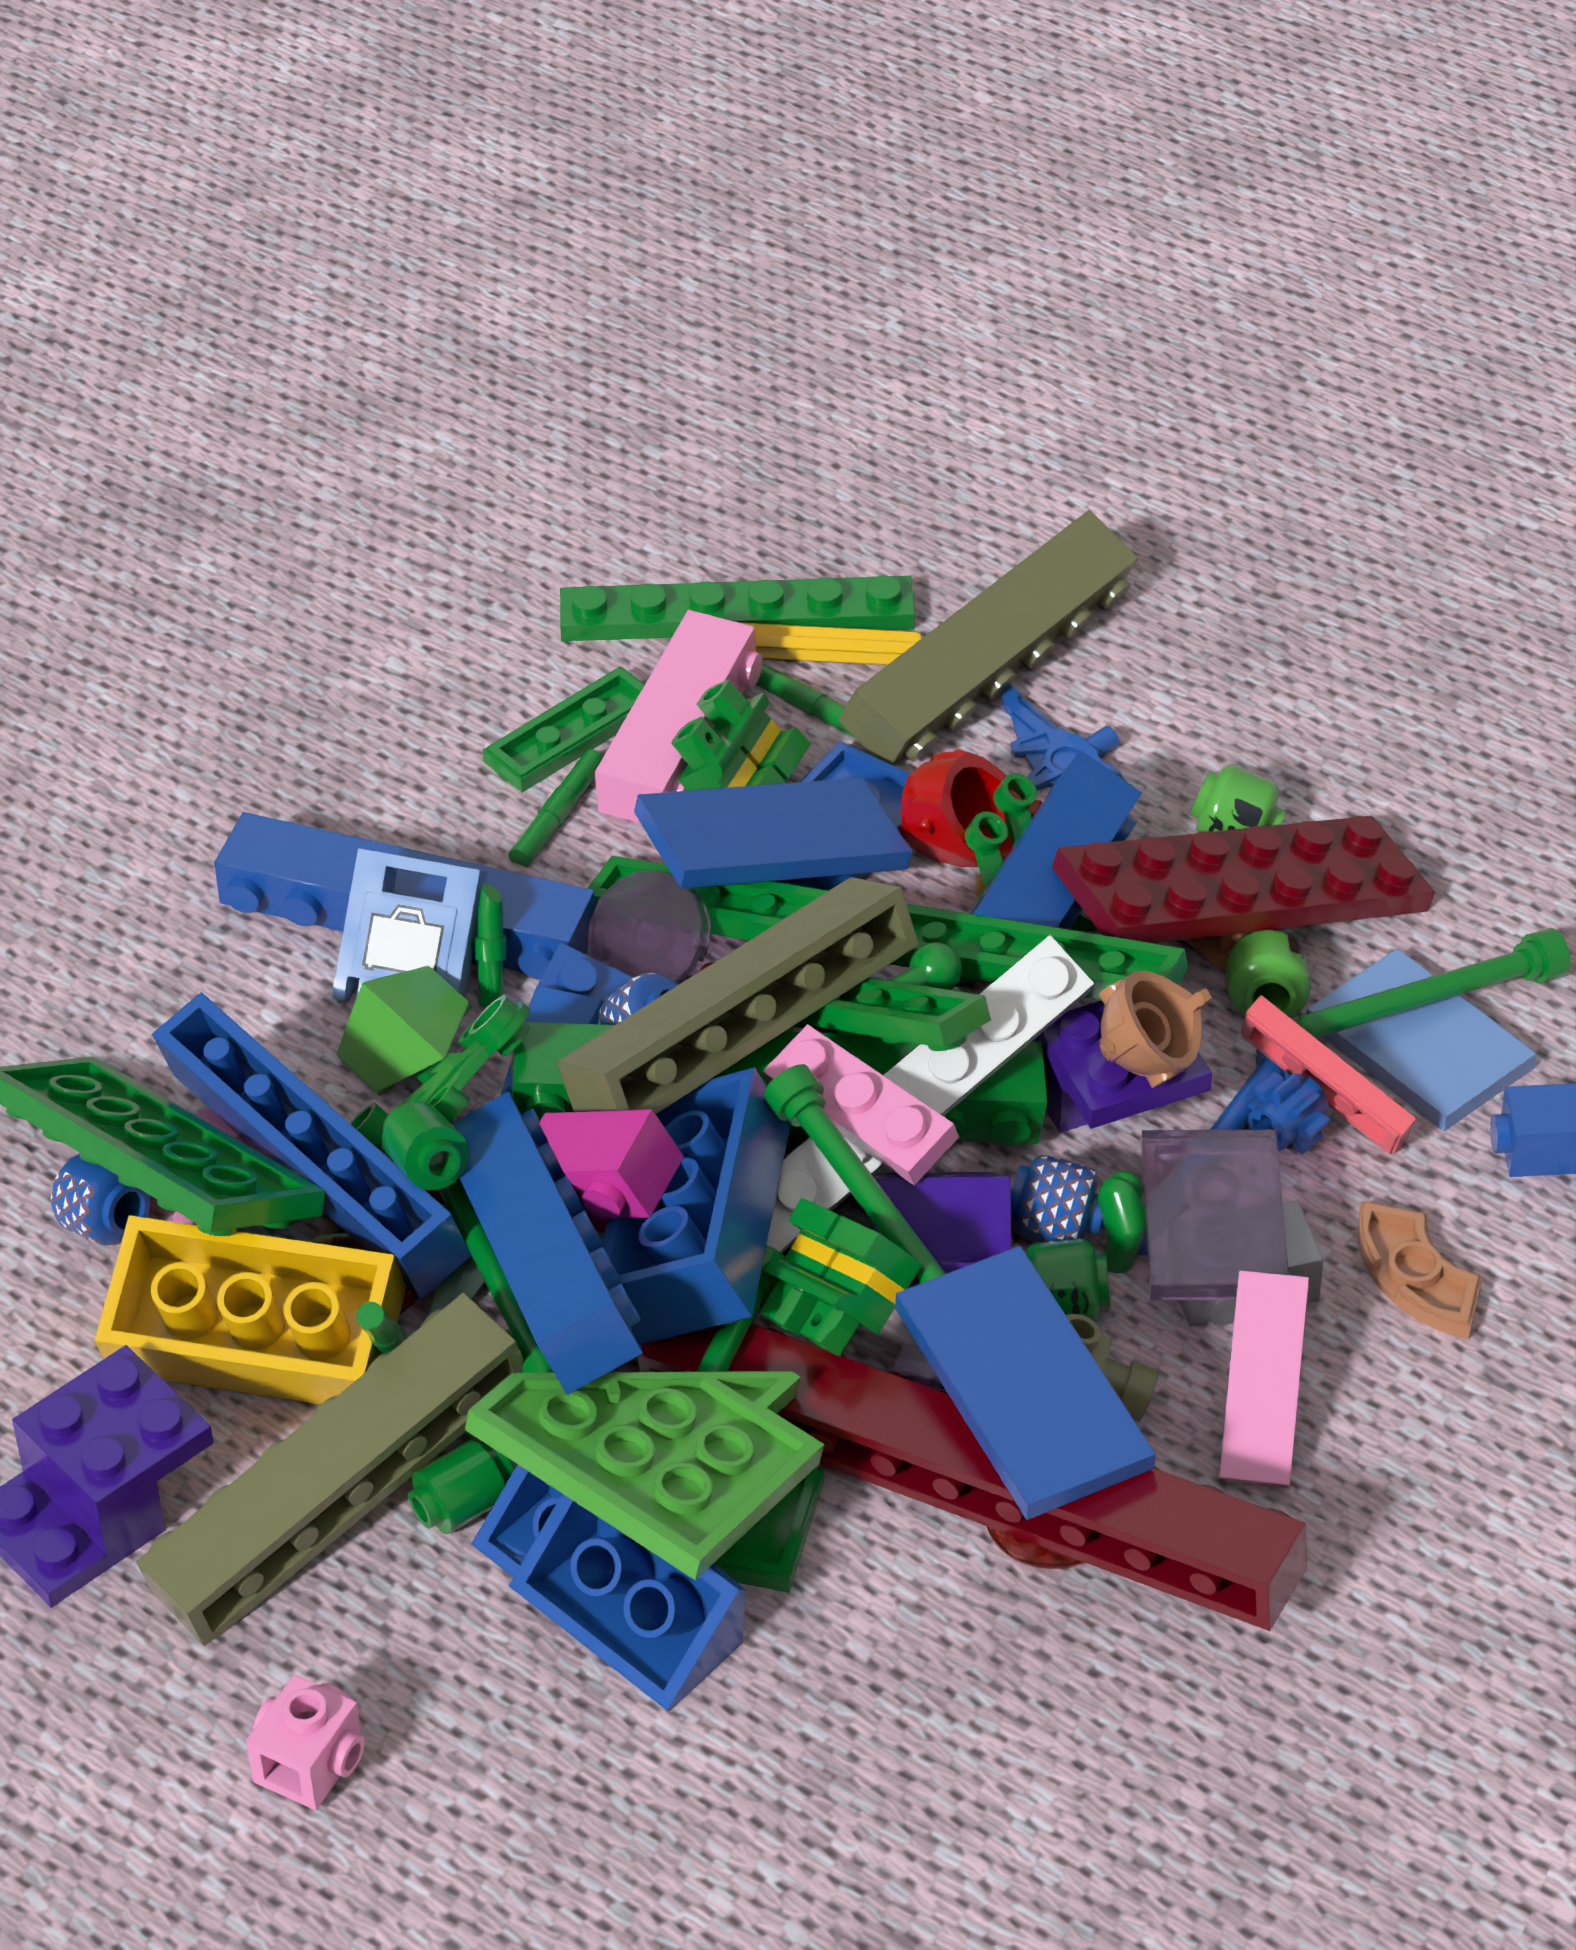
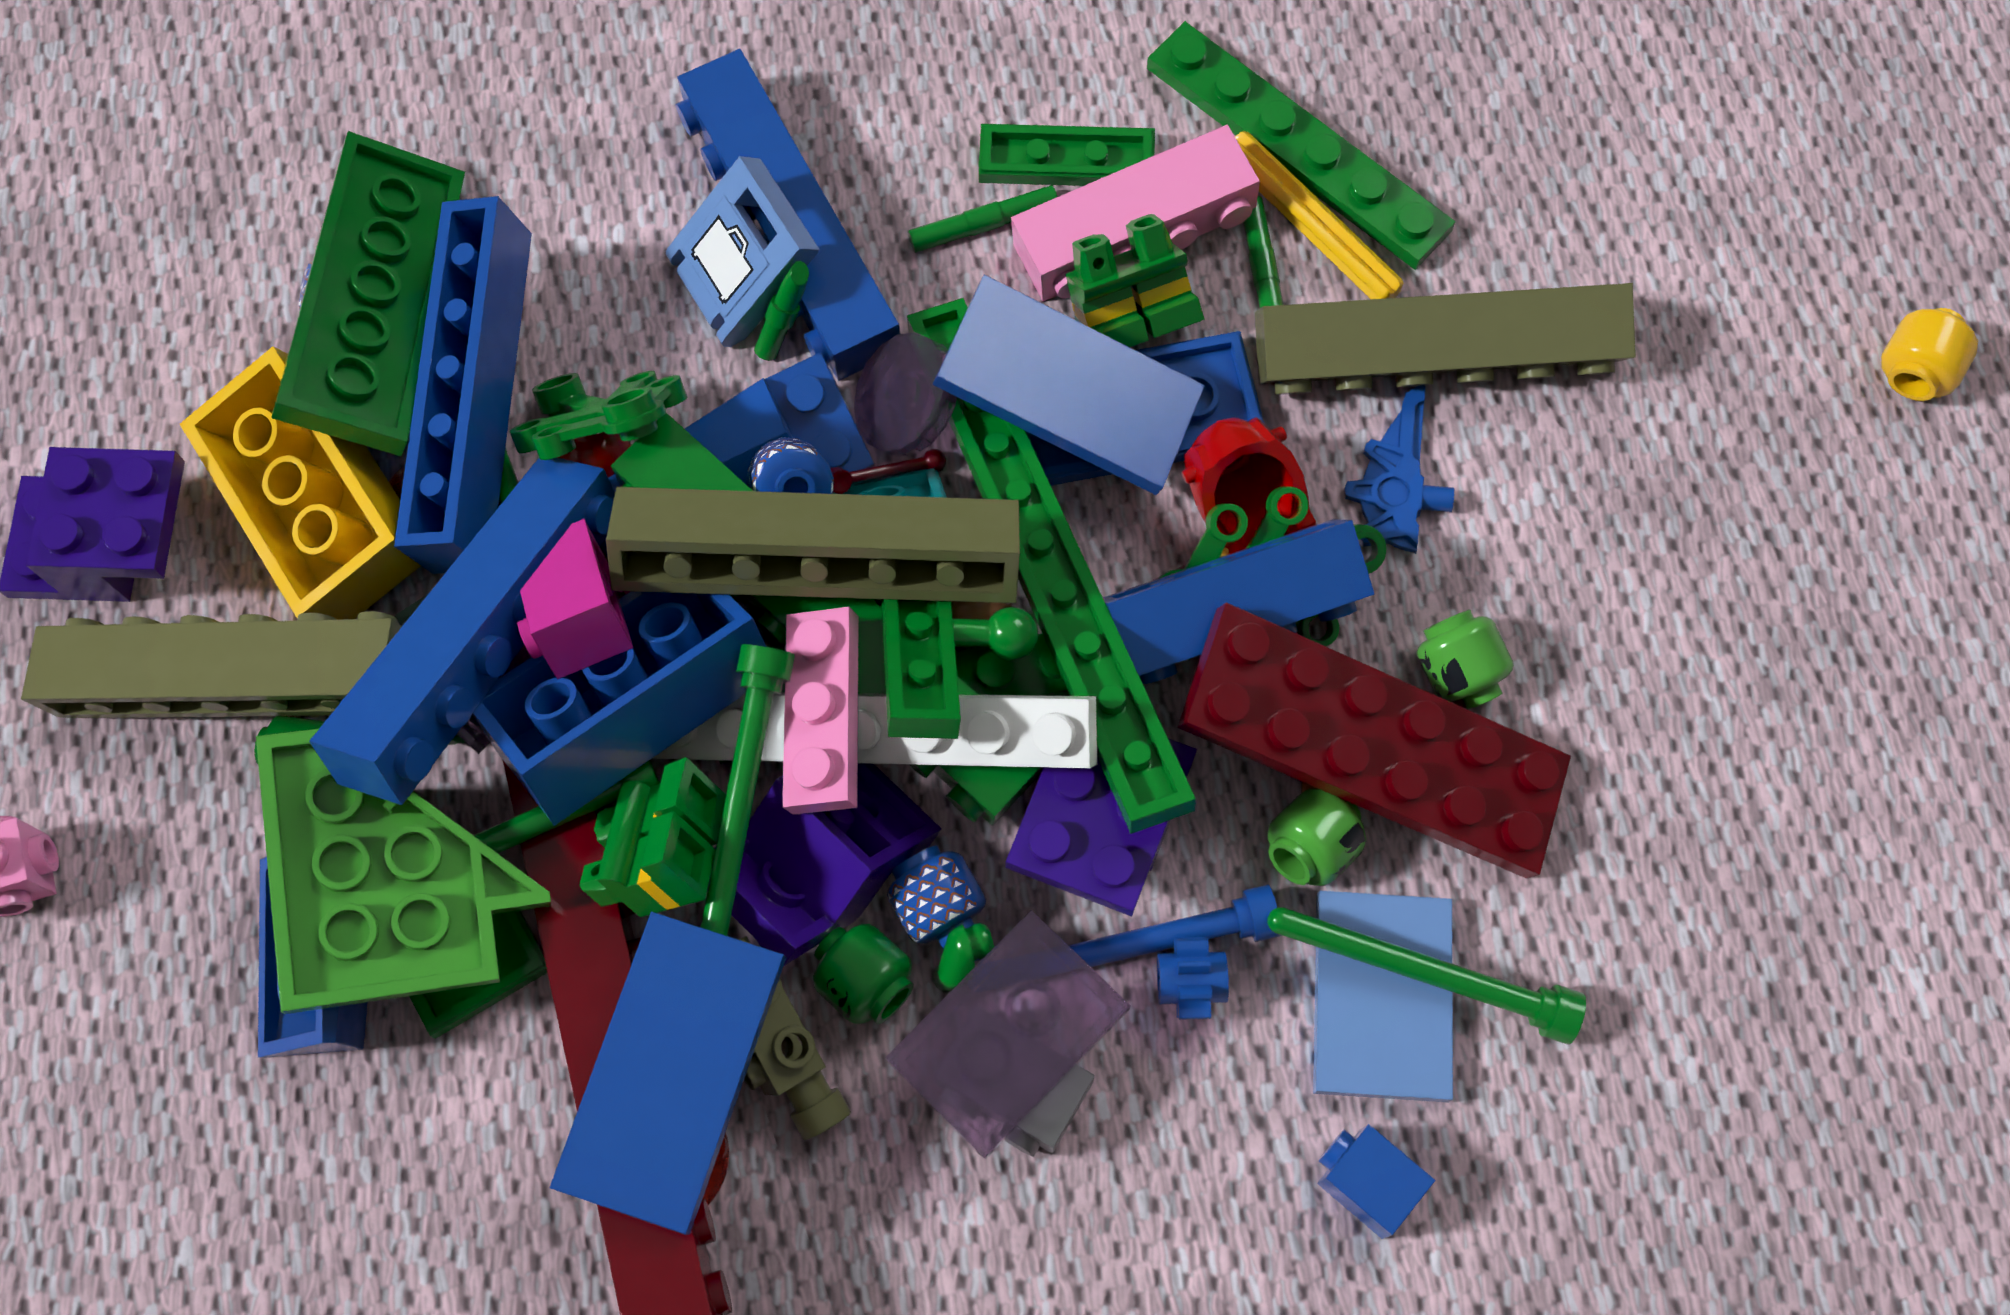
camera: 45 degrees right, 25 degrees up
(380, 1327) = (334, 597): green piece -> none
(401, 1026) = (665, 327): bright green slope -> none
(425, 1145) = (489, 467): green brick -> none
(1151, 1025) = (1089, 849): nougat helmet -> none
(1264, 1379) = (898, 1208): bright pink tile -> none
(1319, 437) = (1929, 353): none -> yellow head
(1345, 1088) = (1244, 981): coral tile -> none
(1413, 1271) = (1144, 1198): nougat tile -> none

